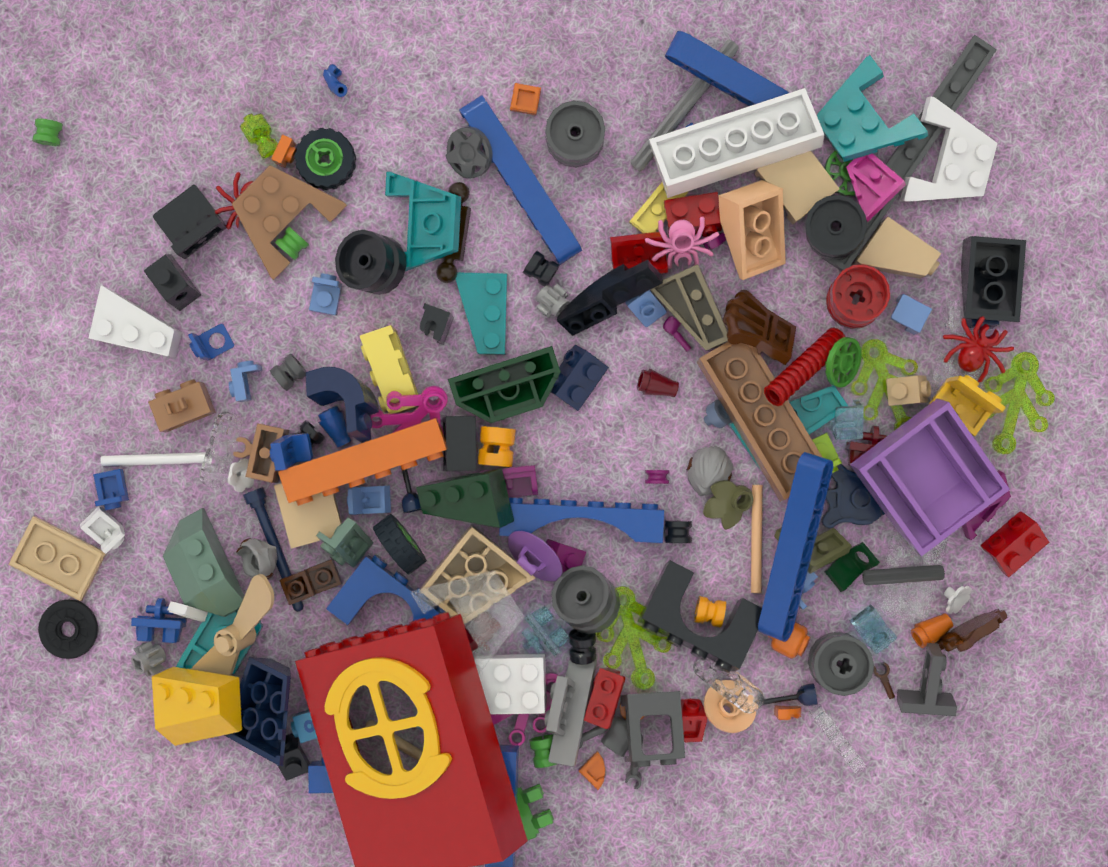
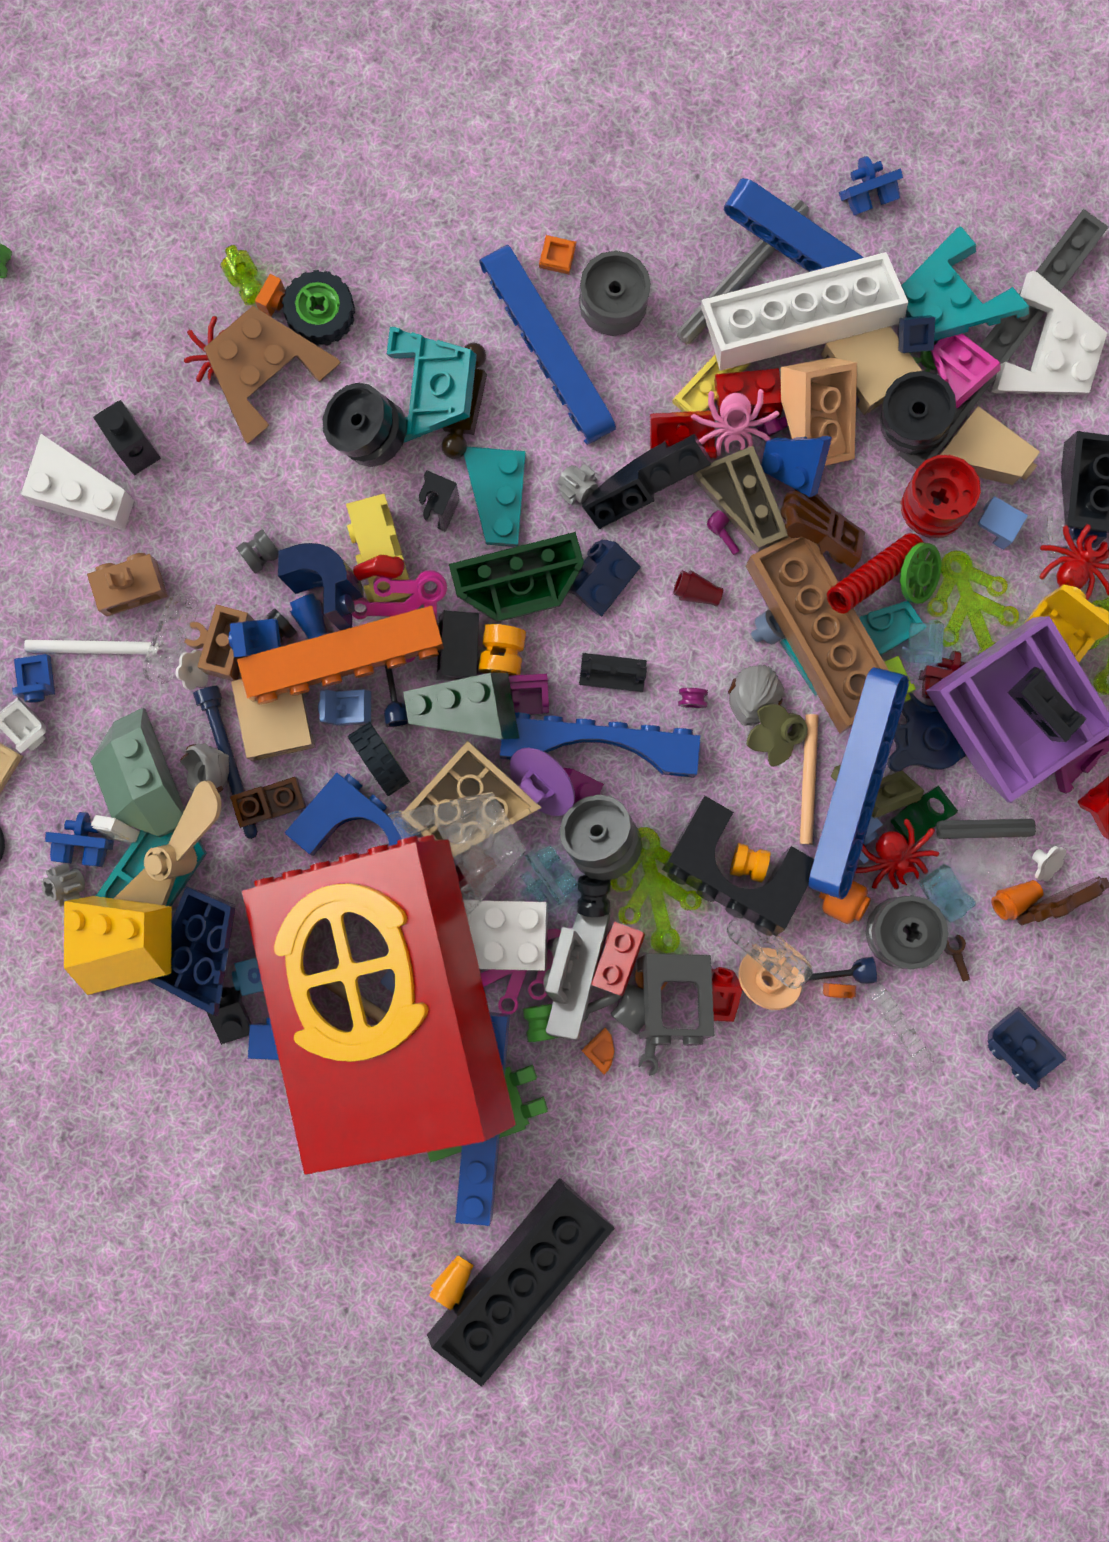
camera: 10 degrees left, 5 degrees down
(189, 222) = (153, 371): black bracket -> none
(201, 346) = (156, 513): blue bracket -> none
(239, 385) = (198, 563): medium blue bracket -> none
(291, 243) = (272, 401): bright green wheel -> none
(325, 294) = (308, 463): medium blue bracket -> none
(335, 86) = (331, 217): blue arm -> none
(346, 544) = (314, 754): sand green bracket -> none
(392, 385) = (380, 566): none -> red arm
(468, 152) = (488, 308): dark grey wheel -> none
(541, 268) = (566, 447): black wheel -> none
(589, 458) = (612, 672): none -> black hinge
(646, 308) = (689, 498): medium blue bracket -> none
(678, 531) = (716, 764): black wheel -> none
(735, 274) = (797, 462): none -> blue wing
(802, 21) = (886, 186): none -> blue hips
(831, 600) = (897, 856): none -> red animal
(833, 158) = (916, 334): none -> dark blue tile
(908, 390) = (996, 610): tan bracket -> none
(930, 697) = (1015, 967): dark grey bracket -> none
(940, 752) = (1024, 1048): none -> dark blue bracket
(949, 477) = (1046, 706): none -> black hinge

